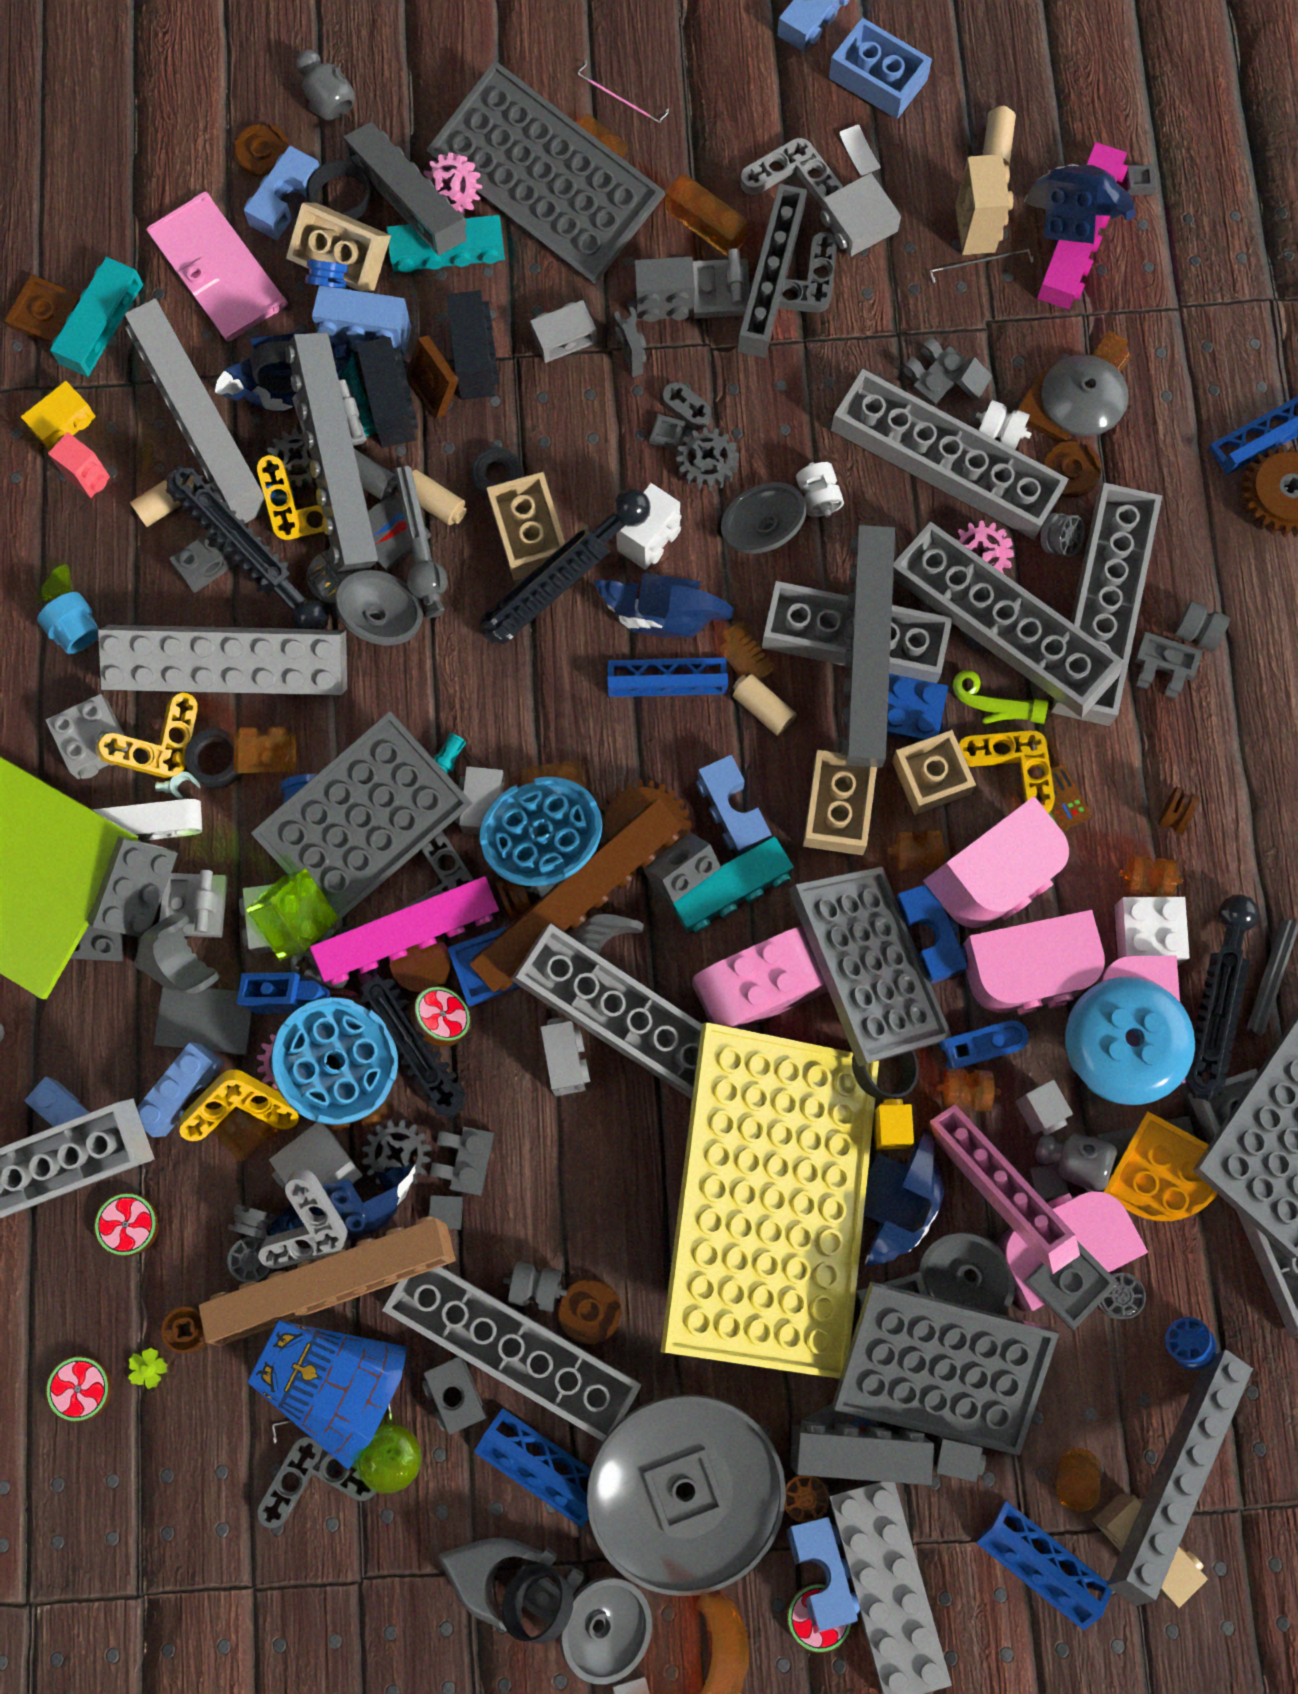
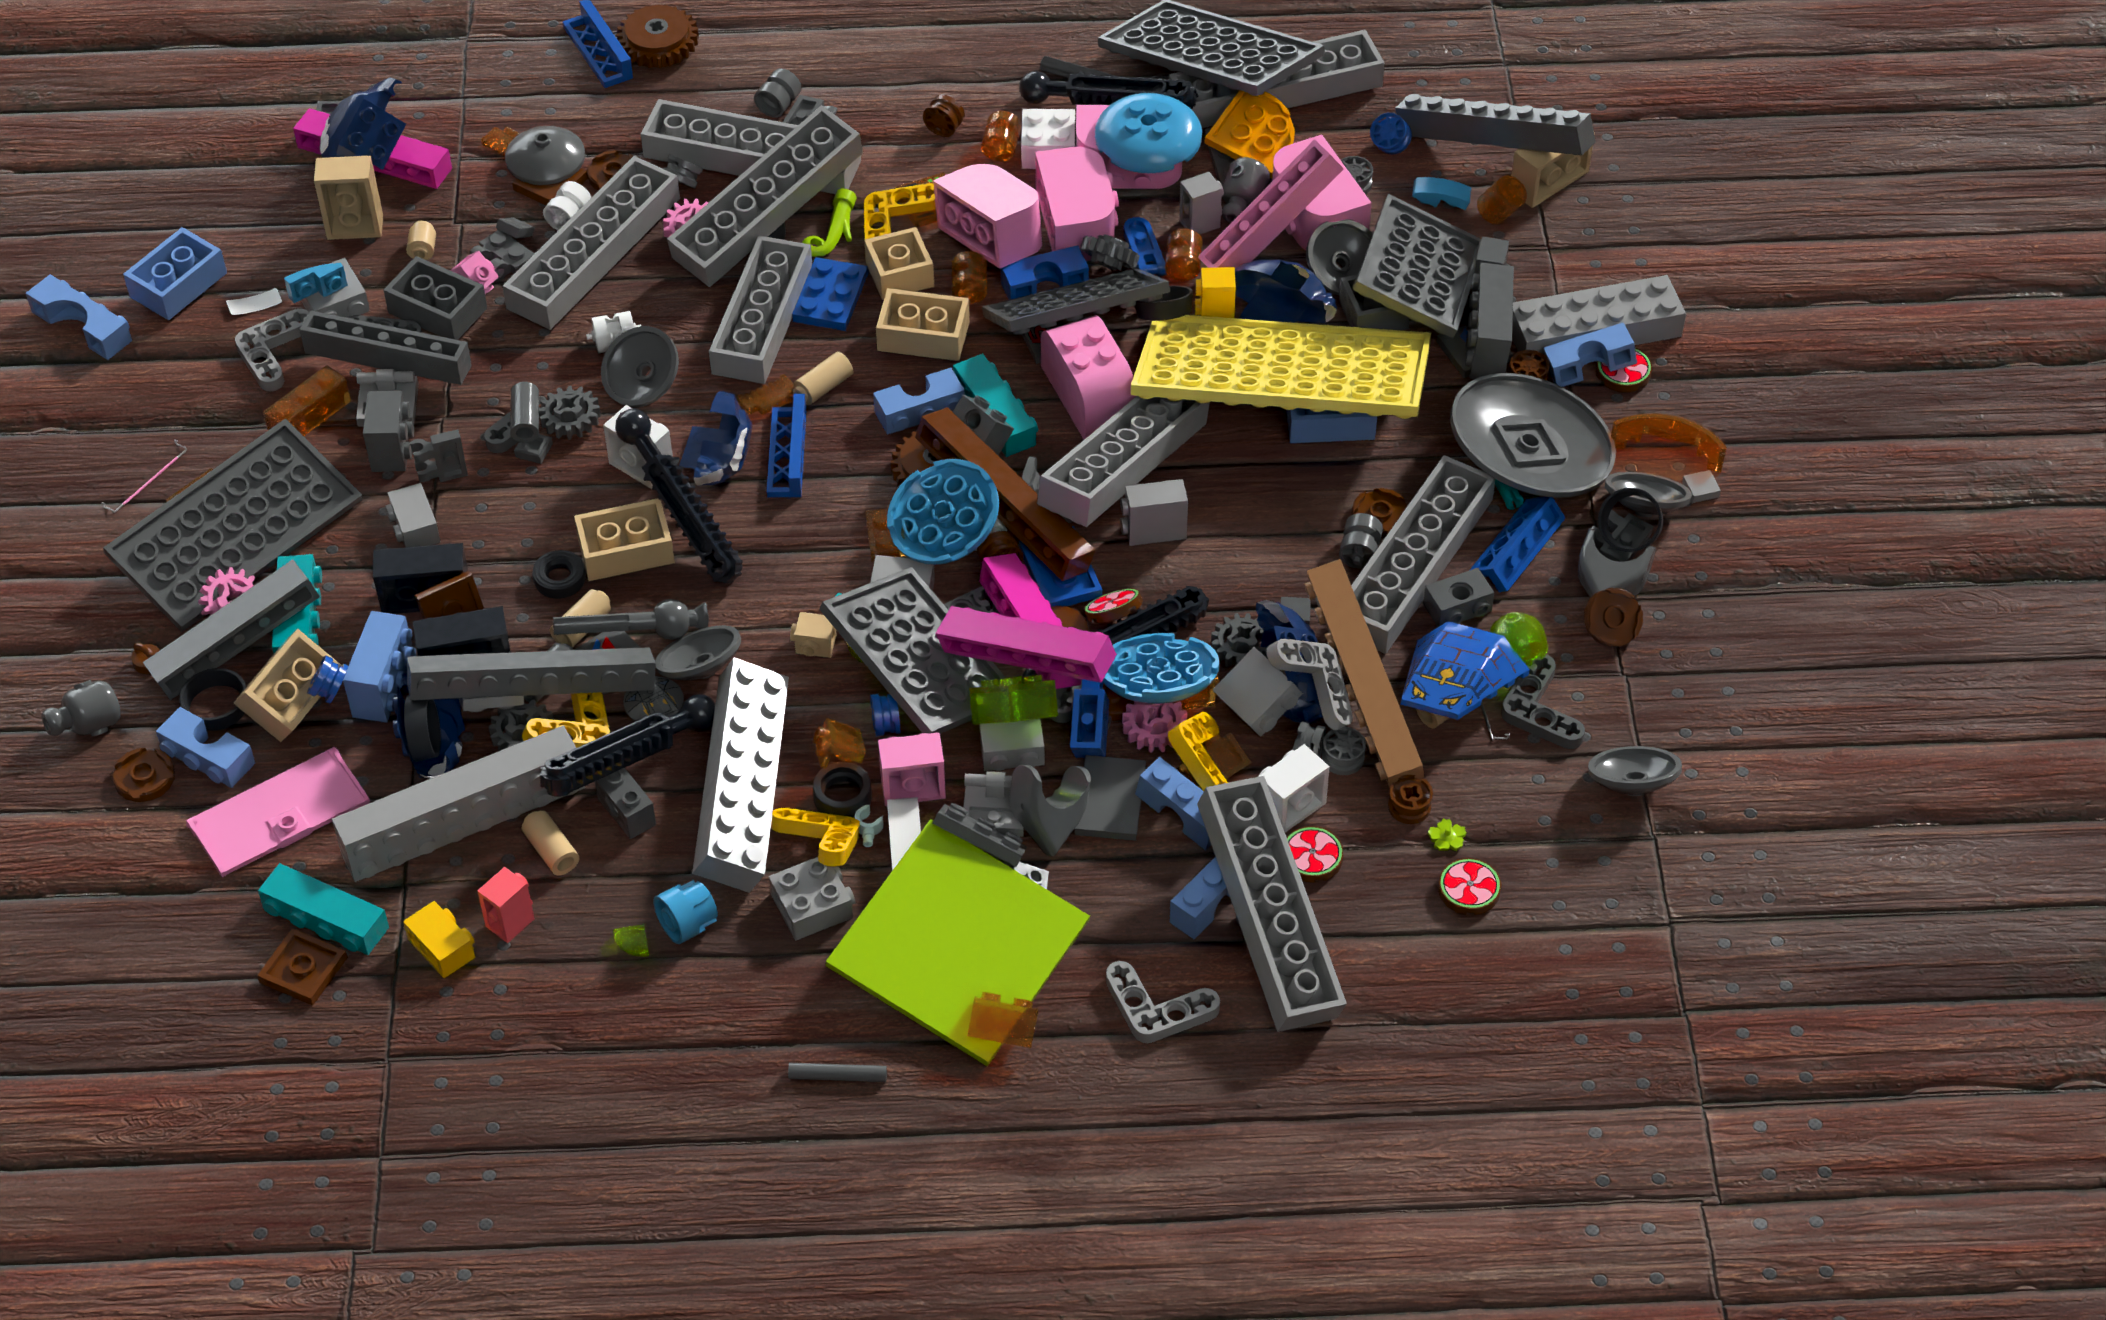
camera: 90 degrees left, 25 degrees down
(185, 1202) = (1297, 785): none -> white brick
(224, 819) = (912, 767): none -> bright pink brick
(224, 1587) = (1635, 769): none -> dark grey dish
(332, 919) = (1026, 643): none -> dark pink brick
(396, 128) = (142, 653): none -> reddish brown tile
(414, 714) = (813, 635): none -> tan brick
(420, 1573) = (1613, 617): none -> reddish brown tile
(471, 1162) = (1244, 593): dark grey plate -> none
(695, 413) = (524, 412): none -> dark grey brick
(854, 198) = (322, 279): none -> dark azure slope
(855, 311) = (435, 298): none -> dark grey brick
(869, 646) = (783, 280): dark grey brick -> none
(893, 344) = (477, 269): none -> bright pink brick
(947, 290) = (421, 240): none -> tan brick
(954, 1002) = (1109, 252): none -> dark grey gear
(979, 260) = (389, 221): dark grey piece -> none
(999, 133) = (269, 199): tan brick -> none
(1043, 1571) = (1572, 230): blue fence -> none
(1074, 1288) = (1356, 179): dark grey tile -> none
(1100, 1405) = (1432, 190): none -> dark azure slope

